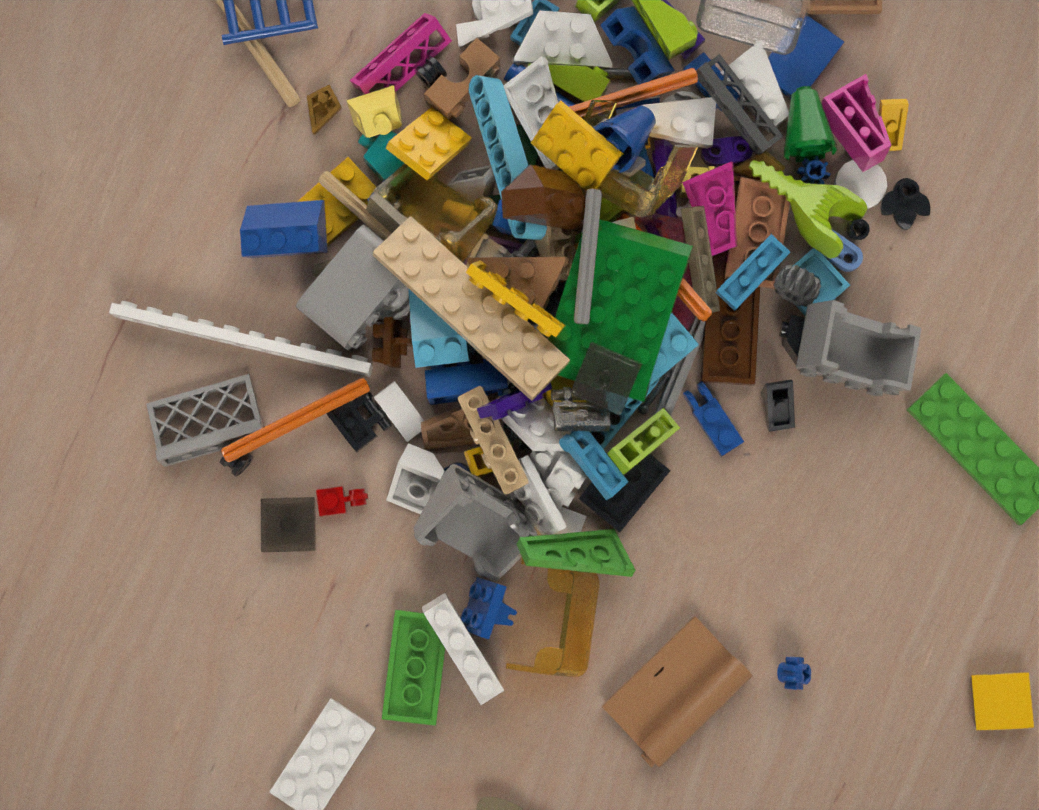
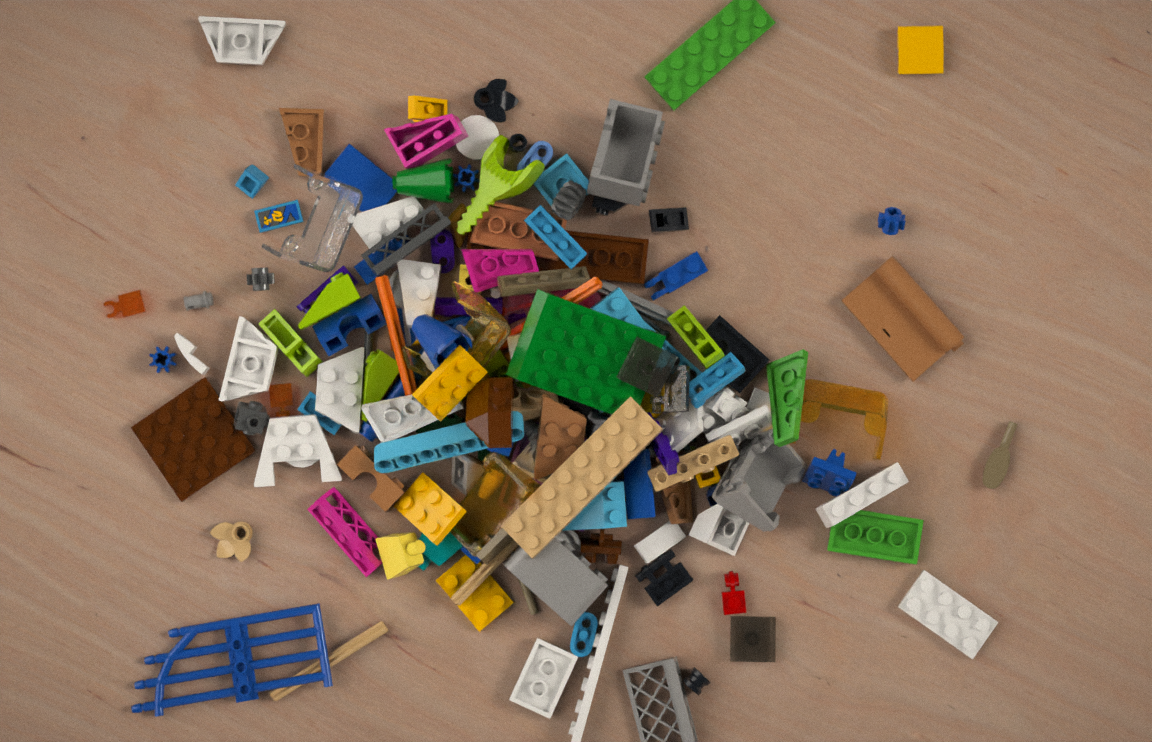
camera: 80 degrees left, 5 degrees up
(237, 283) = (543, 678): none -> white plate
(284, 229) = (500, 636): blue slope -> none
(290, 326) = (583, 634): none -> dark azure plate
(295, 420) = (666, 629): orange axle -> none
(322, 107) = (390, 601): pearl gold piece -> none
(430, 71) = (363, 505): black wheel -> none
(497, 284) = (577, 440): yellow wing -> none
(587, 256) = (544, 377): light grey axle -> none

